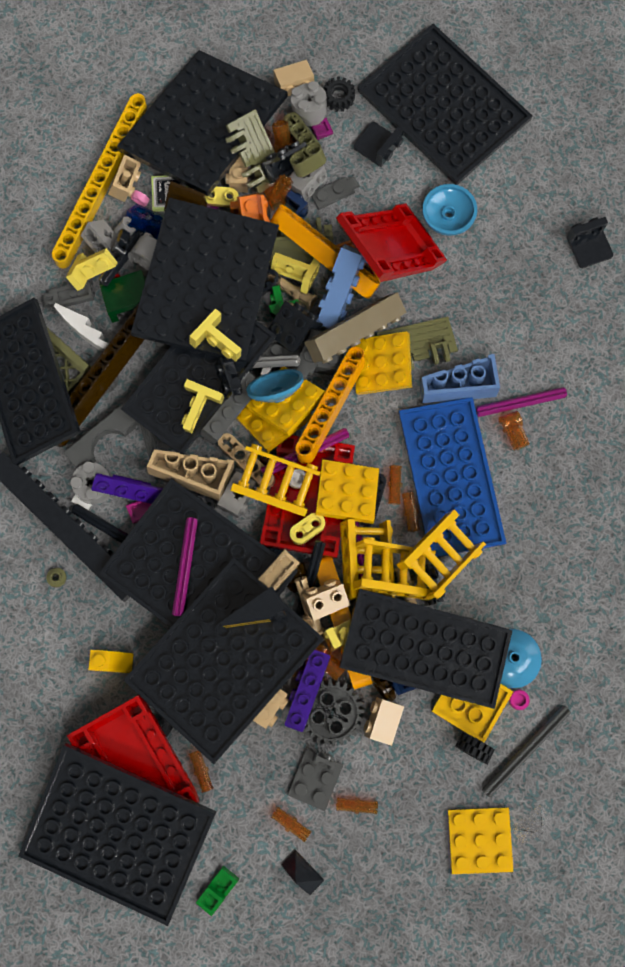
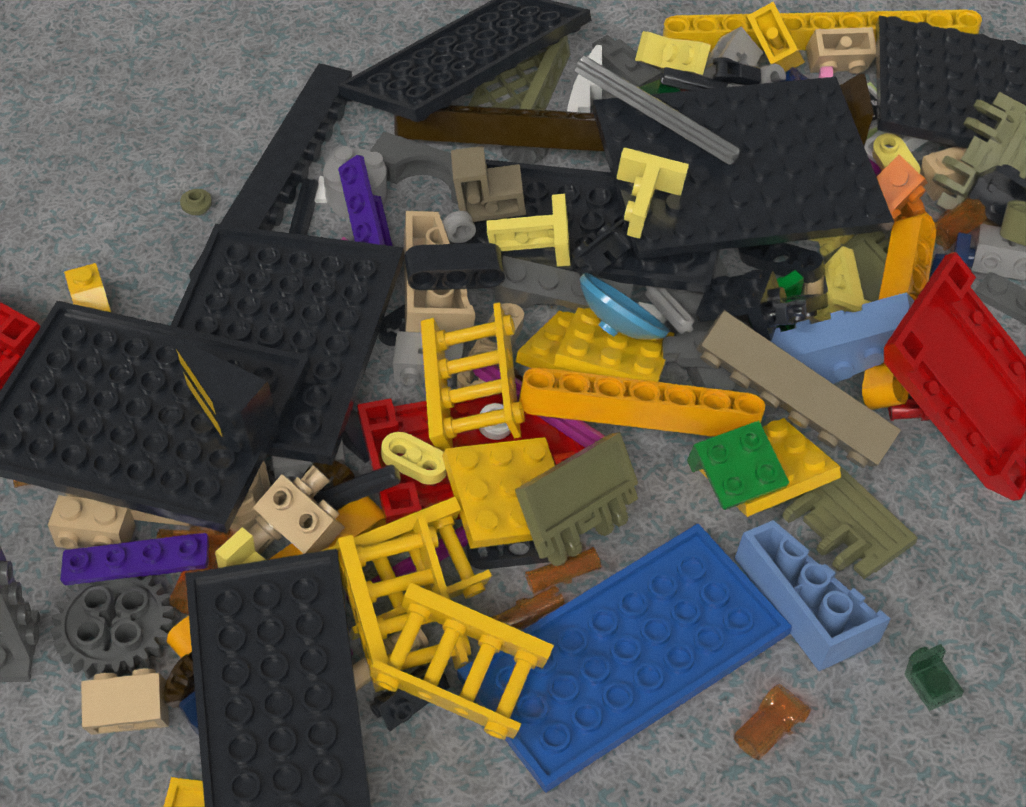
camera: 70 degrees right, 25 degrees down
(101, 208) = (775, 37): none -> yellow slope
(154, 416) = (484, 191): none -> dark tan brick
(158, 304) = (657, 110): none -> dark grey axle
(170, 442) = (458, 219): none -> light grey bush
(184, 566) = (271, 309): magenta axle -> none
(203, 457) = (454, 266): none -> black beam
(279, 570) = (315, 425): tan plate -> none
(312, 300) = (797, 307): none -> black hinge
(371, 459) = (577, 496): none -> olive hinge
(388, 377) = (739, 465): none -> green bracket
(520, 402) = (837, 719): magenta axle -> none
(521, 351) = (932, 677): none -> clear green bracket

